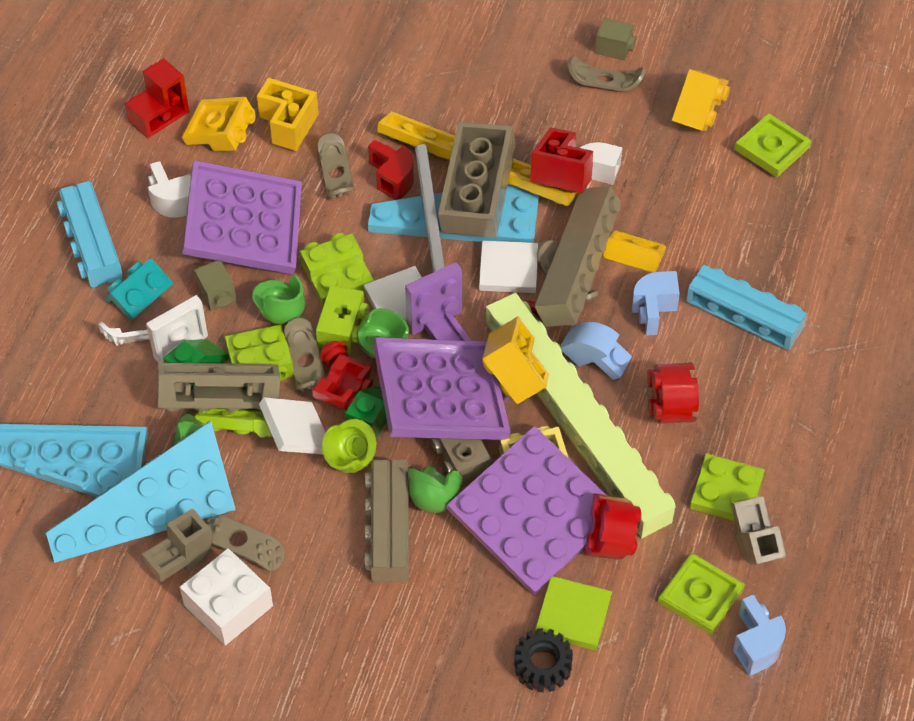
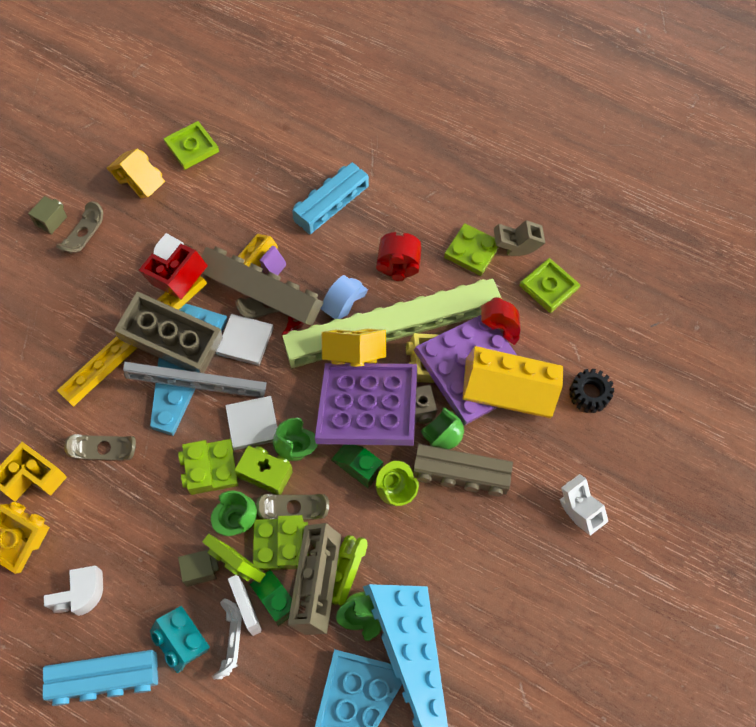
camera: 80 degrees left, 10 degrees up
(184, 548) = (462, 636): dark tan brick -> none
(225, 305) = (233, 560): none -> lime plate
(226, 596) = (512, 604): white brick -> none
(242, 217) = (134, 532): medium lavender plate -> none
(259, 547) = (450, 602): dark tan piece -> none
(293, 425) = (364, 524): white tile -> none
(331, 352) = (296, 482): red plate -> none
(343, 382) = (330, 479): red cylinder -> none
(371, 661) = (581, 506): none -> white brick
(394, 168) = (120, 395): red brick -> none
(434, 303) = (294, 395): medium lavender bracket -> none
(514, 544) = (512, 382): none -> yellow slope
(574, 612) = (559, 354): lime tile -> none
(625, 267) = (272, 261): none -> medium lavender slope
(655, 294) = (305, 251): light blue brick -> none
(762, 641) = (595, 256): light blue brick -> none

